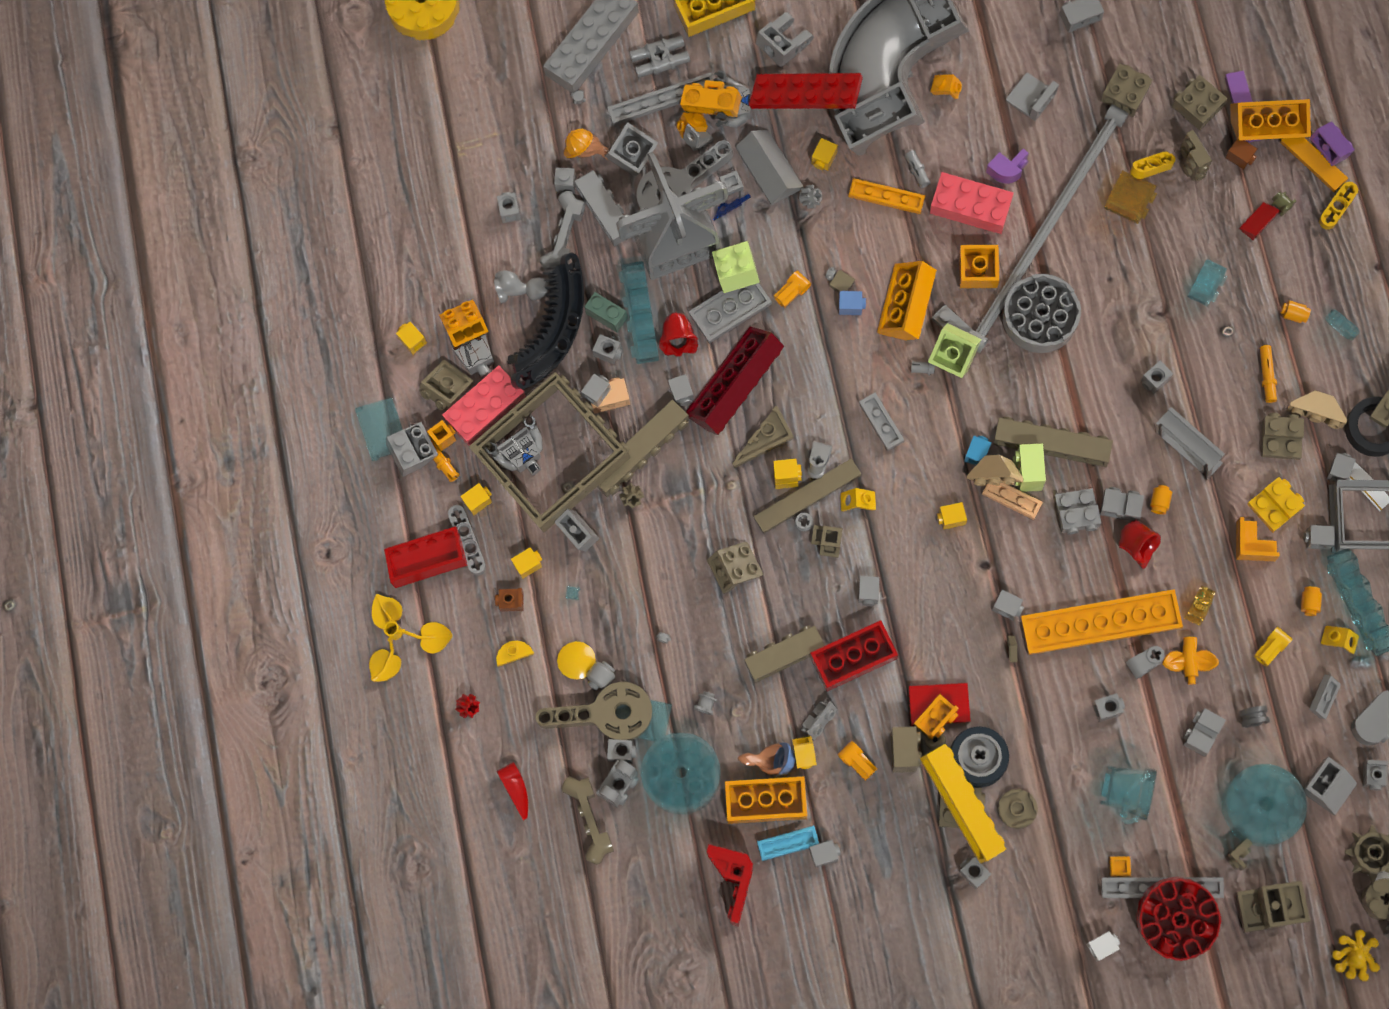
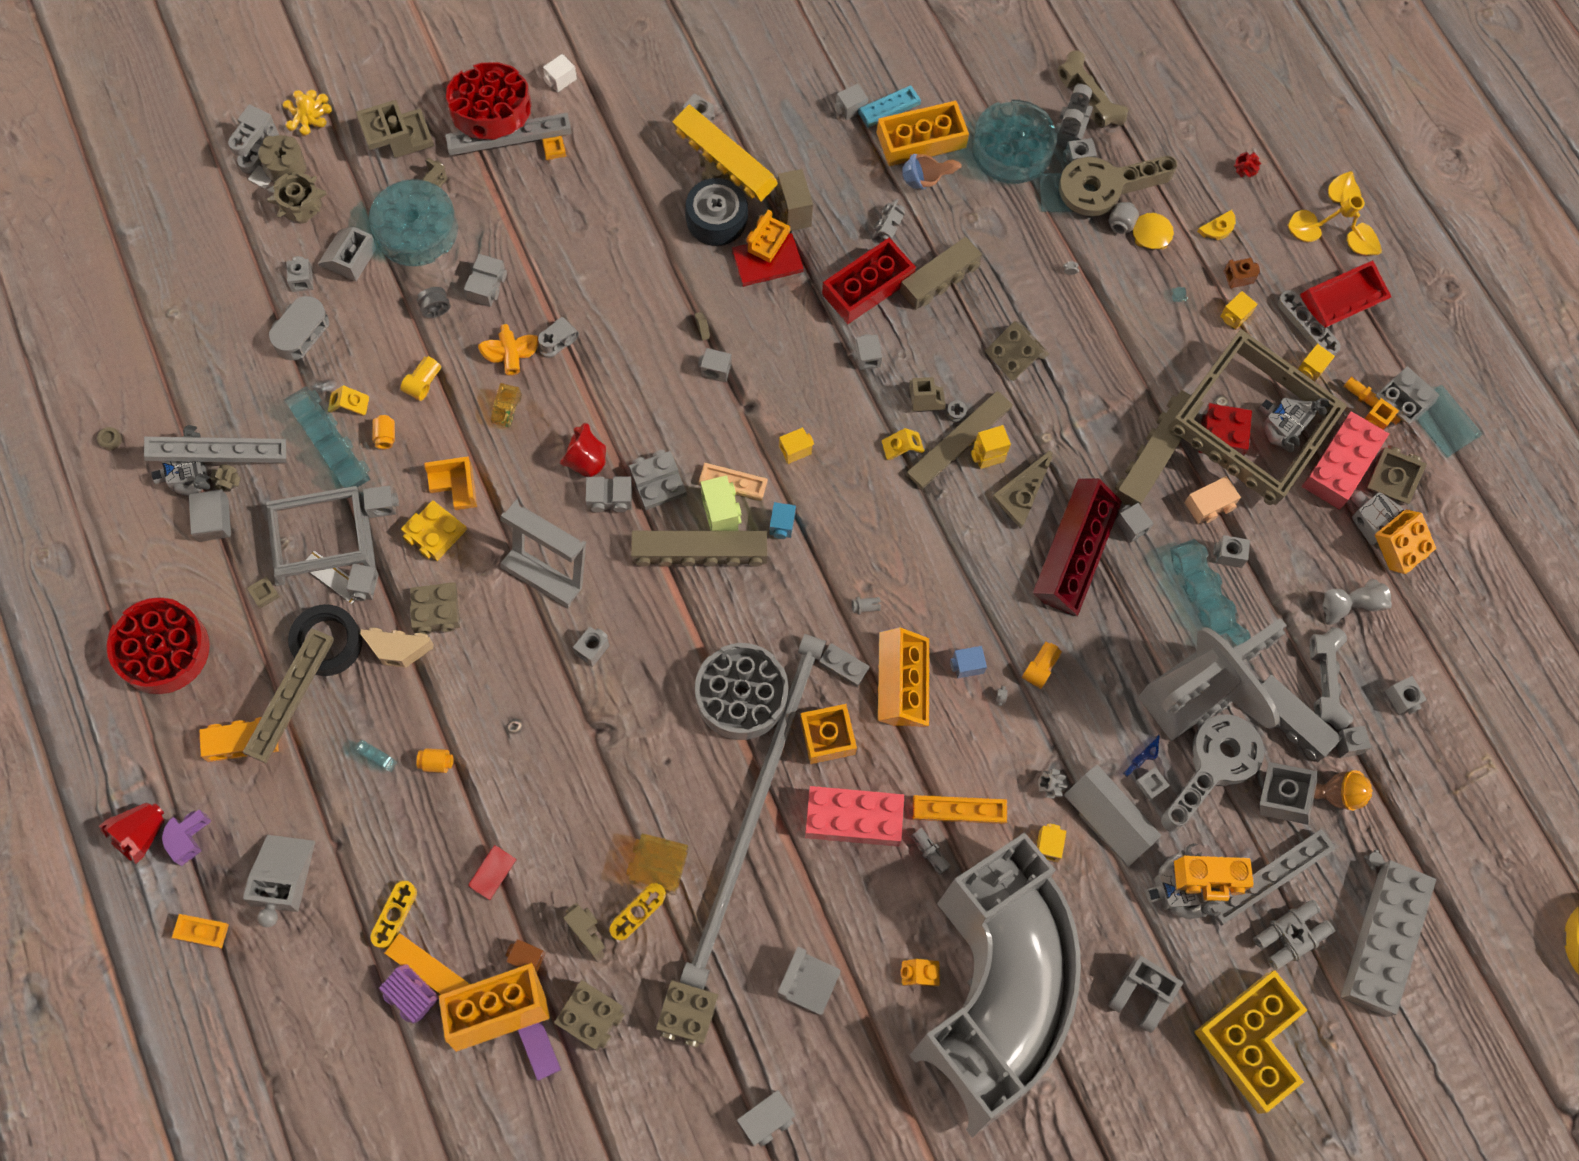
camera: 155 degrees right, 5 degrees down
(411, 337) = (1456, 520): yellow brick -> none
(515, 787) = (1176, 106): red piece -> none
(564, 303) = (1303, 523): black gear -> none
(576, 530) = (1198, 348): light grey brick -> none
(577, 452) = (1229, 425): none -> red brick
(596, 389) = (1231, 489): light grey brick -> none
(606, 312) = (1249, 592): sand green brick -> none
(631, 495) = (1151, 397): dark tan gear -> none
(677, 326) = (1160, 580): red piece -> none
(696, 120) = (1225, 847): light orange bracket -> none
(696, 139) = (1210, 833): light grey bracket -> none
(705, 703) = (1008, 212): light grey brick -> none
(726, 863) = (942, 73): red bracket -> none
(729, 310) = (1107, 629): light grey plate -> none
(735, 267) = (1117, 670): yellowish green brick -> none
(804, 752) = (895, 183): yellow brick -> none
(806, 91) = (1099, 904): red plate -> none
(818, 459) = (958, 481): light grey piece -> none
(842, 282) = (985, 688): dark tan tile -> none
(854, 757) = (843, 192): light orange piece -> none
(881, 421) = (899, 533): light grey plate -> none
(954, 350) = (834, 621): yellowish green brick -> none
(995, 470) = (755, 488): tan slope -> none
(1005, 170) = (821, 869): medium lavender brick -> none
(1017, 808) = (666, 180): dark tan tile -> none
(1100, 710) = (589, 277): light grey brick -> none
(1101, 622) = (610, 369): light orange plate -> none
(1129, 792) = (555, 202): clear light blue piece -> none
(1160, 499) = (565, 508): light orange brick -> none
(1207, 283) = (546, 774): clear light blue brick -> none
(1269, 381) = (457, 670): light orange pin -> none
(1283, 202) = (464, 900): olive brick -> none
(1325, 696) = (358, 342): light grey plate -> none

